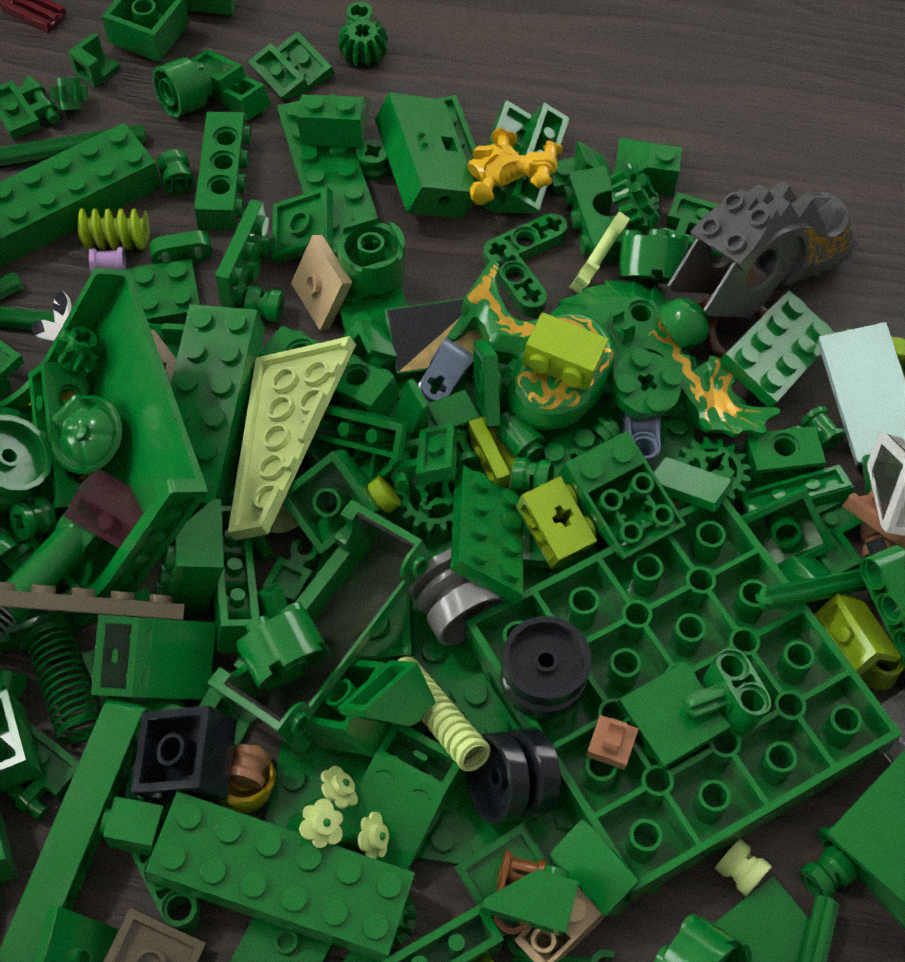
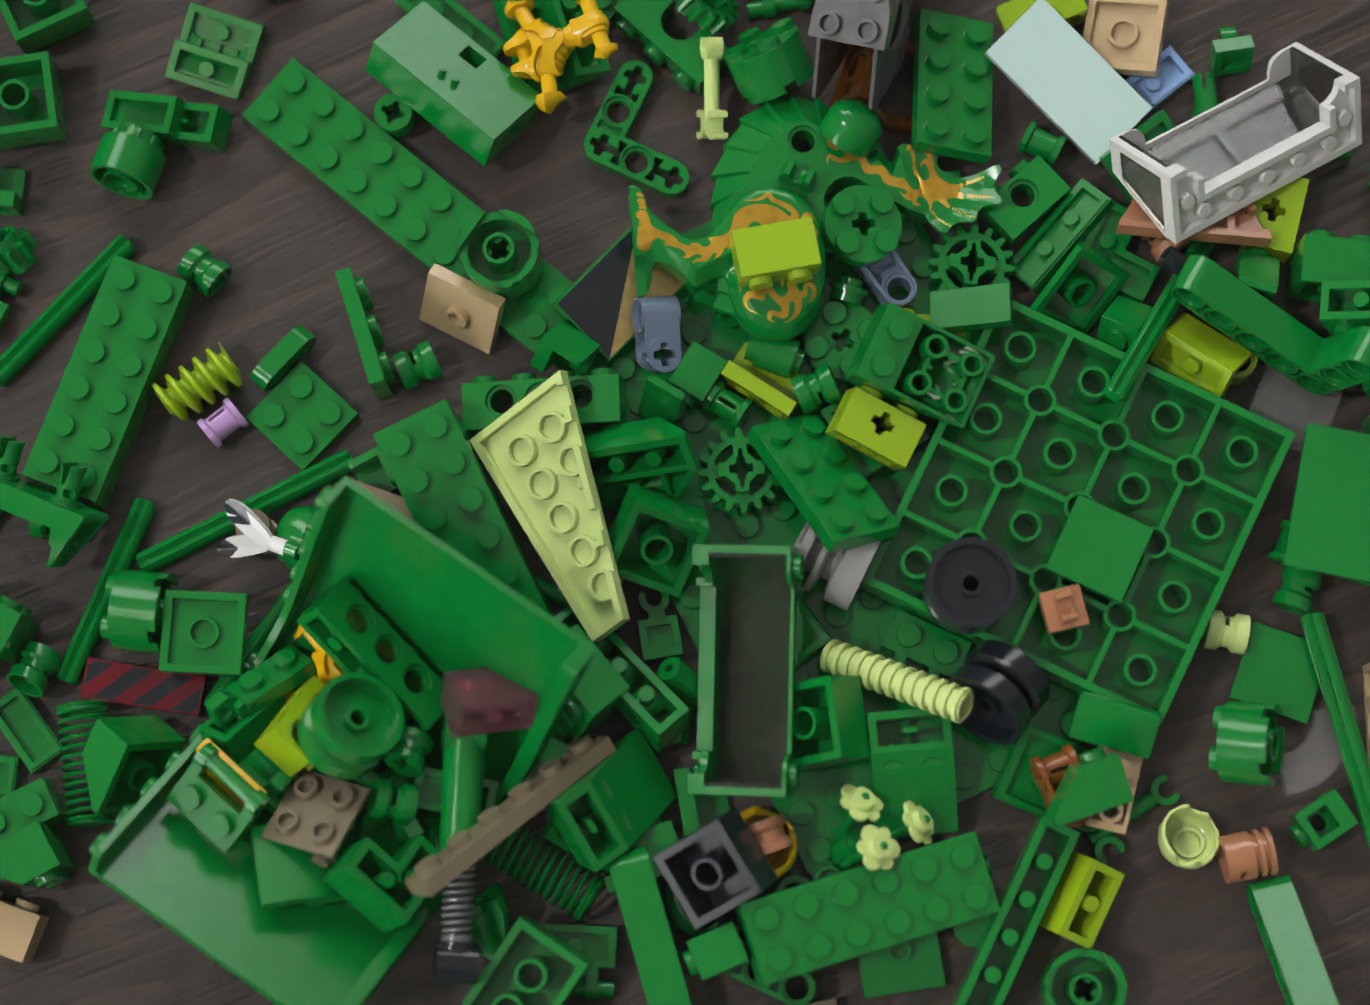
camera: 30 degrees left, 20 degrees up
(77, 349) = (337, 573): green gear -> none
(85, 433) = (412, 650): green piece -> none
(221, 171) = (212, 190): green brick -> none
(281, 647) = (731, 720): green brick -> none
(299, 219) = (388, 250): green tile -> none
(333, 120) = (326, 99): green slope -> none
(384, 494) = (699, 504): lime tile -> none
(391, 696) = (859, 703): green slope -> none
(435, 457) = (721, 434): green plate -> none
(487, 382) = (713, 324): green plate -> none
(731, 692) = (1134, 504): green beam -> none

